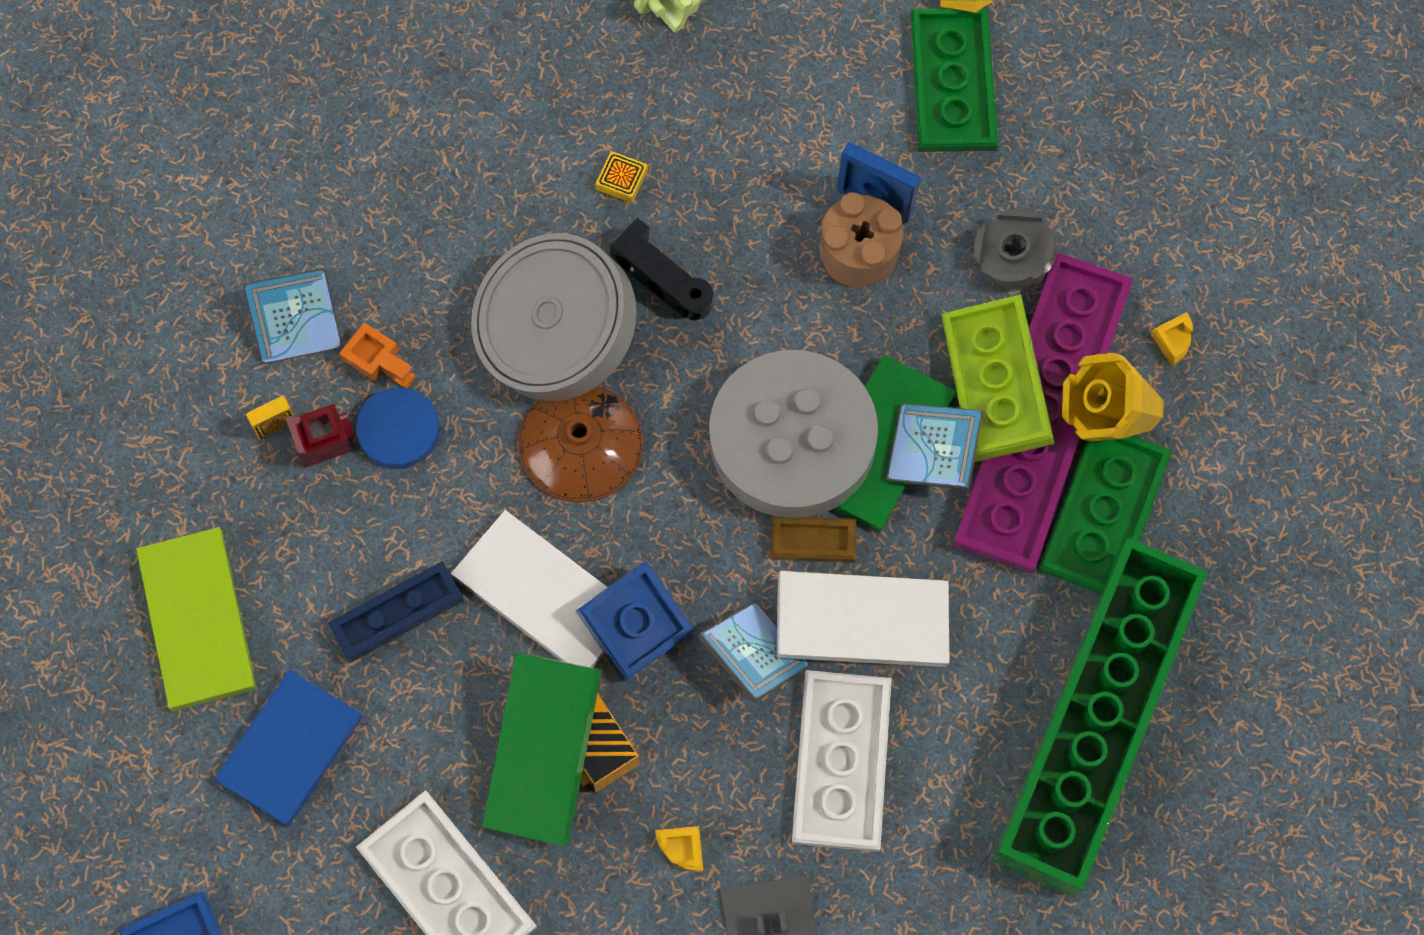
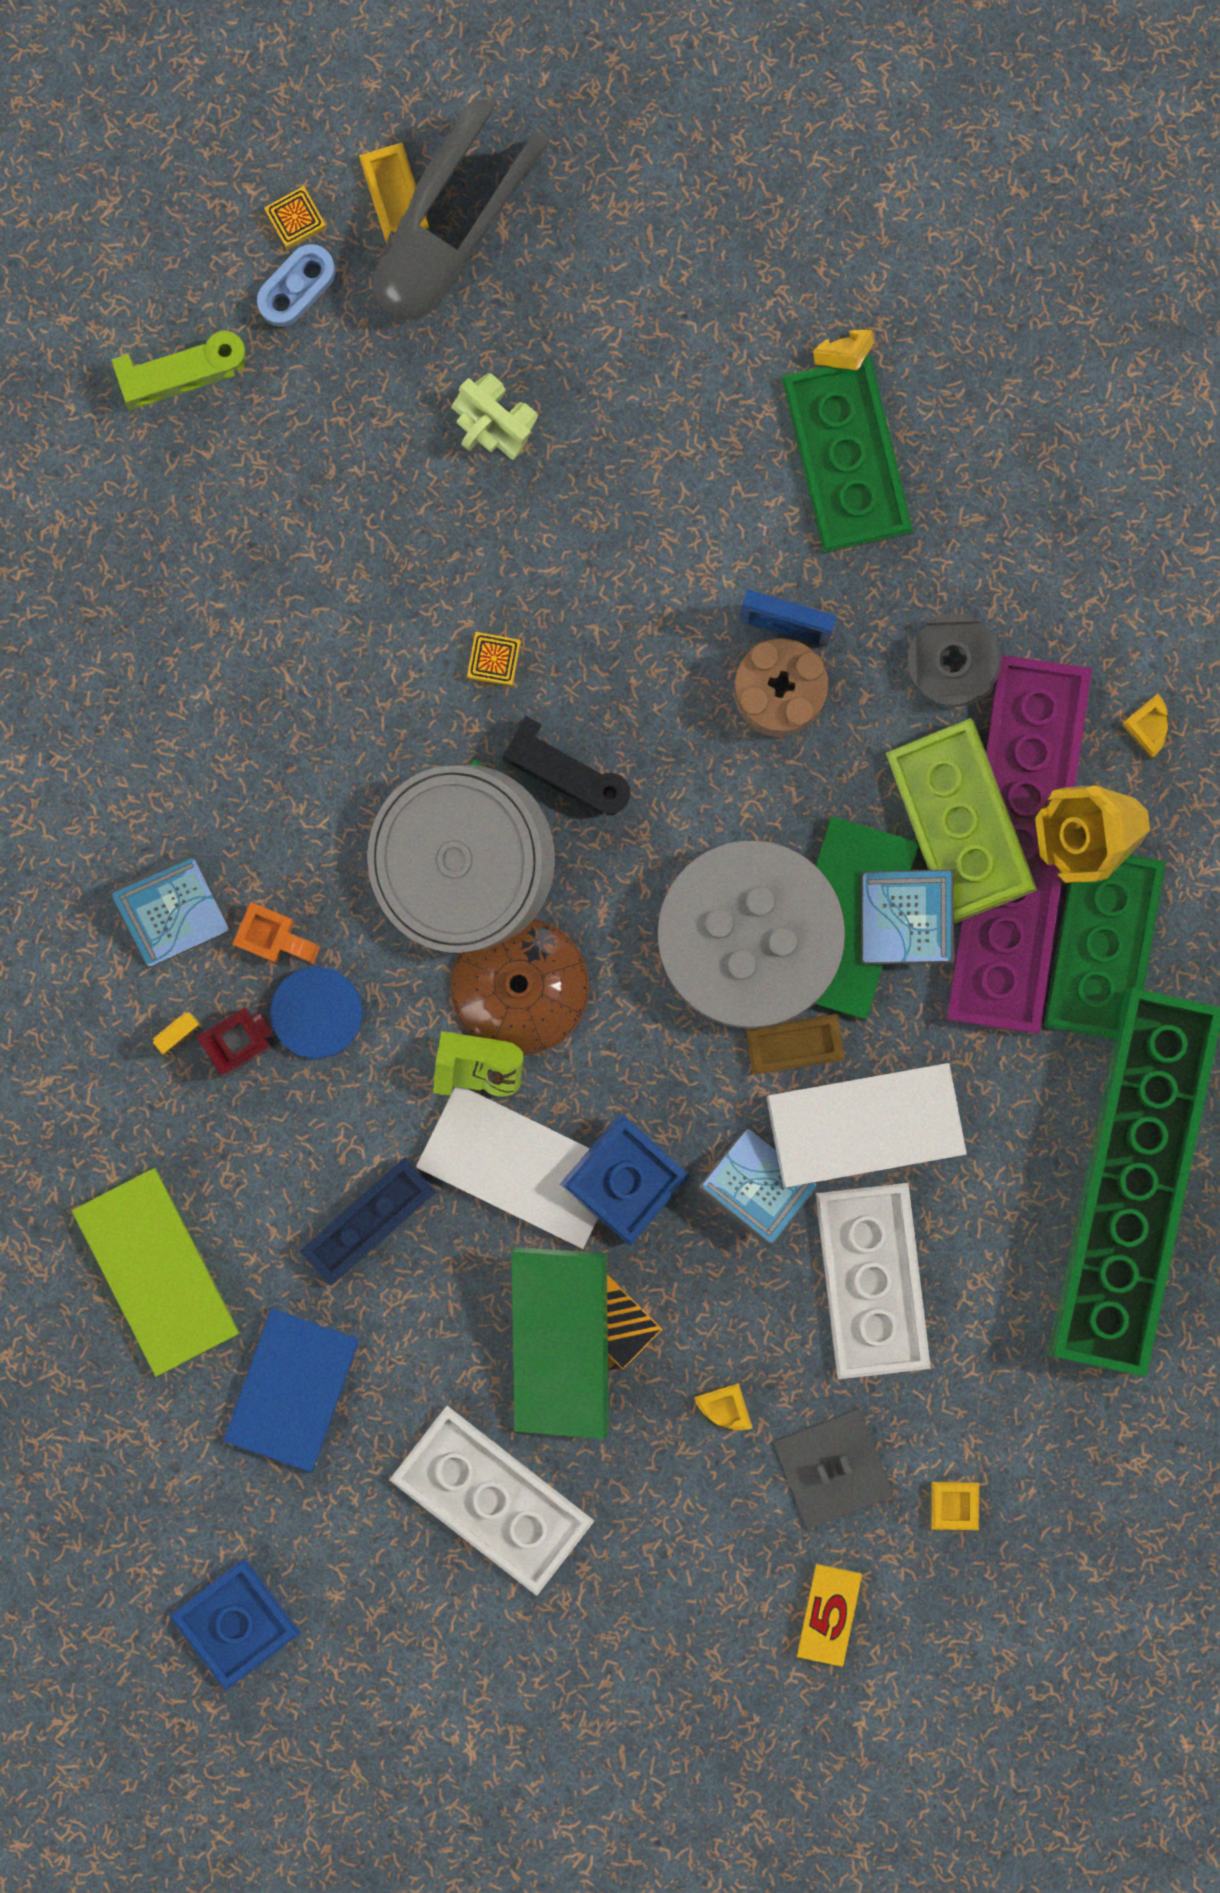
camera: 10 degrees left, 15 degrees up
(525, 495) = (477, 1065): none -> lime leg

